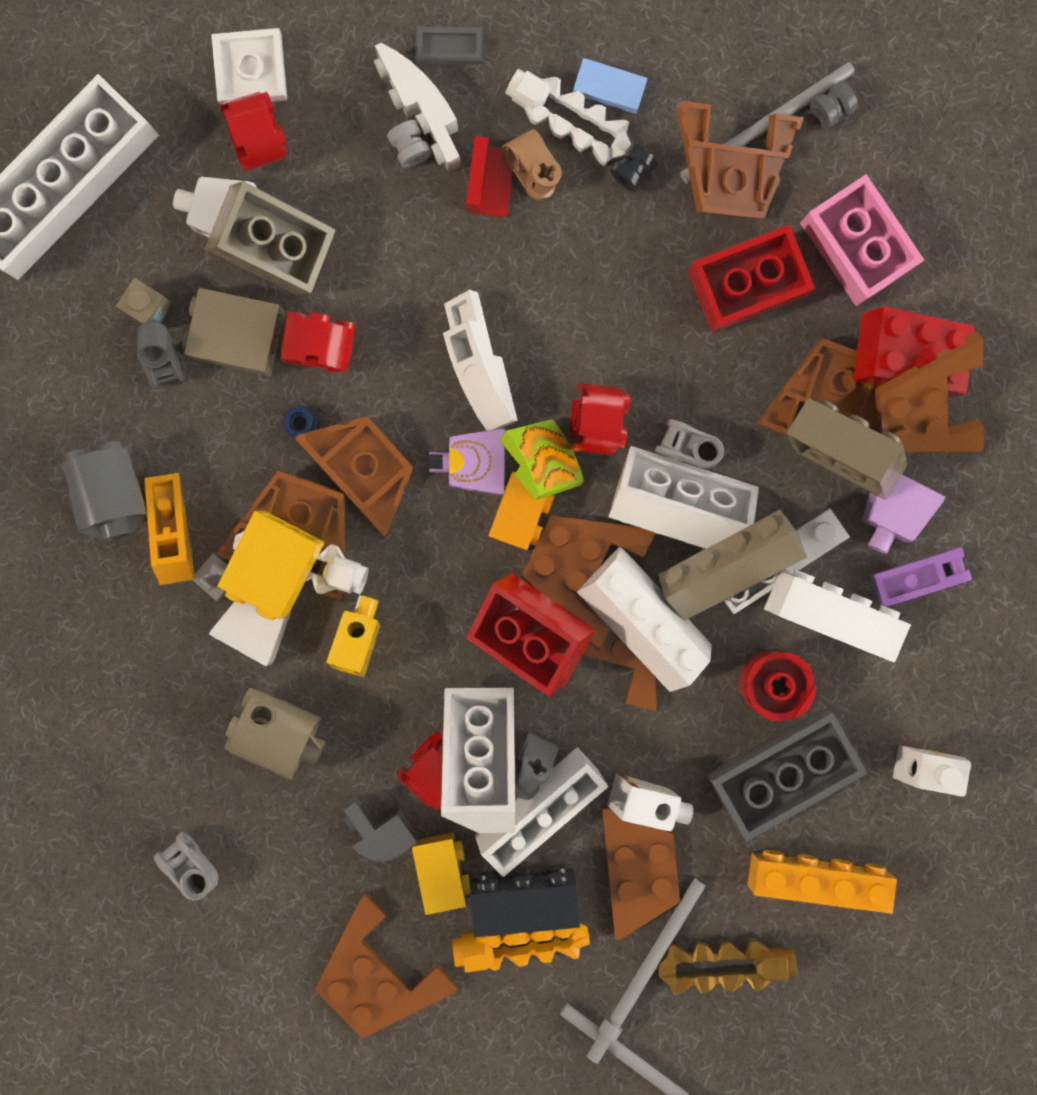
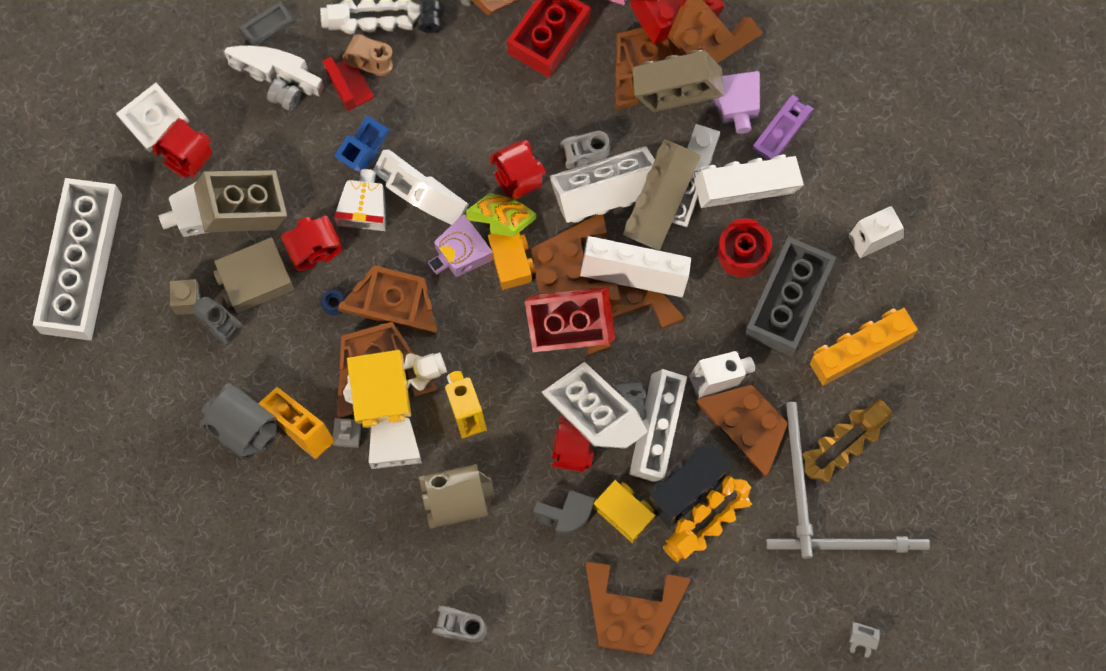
camera: 30 degrees left, 15 degrees down
(407, 333) = (362, 203): none -> white torso
(446, 271) = (362, 149): none -> blue brick

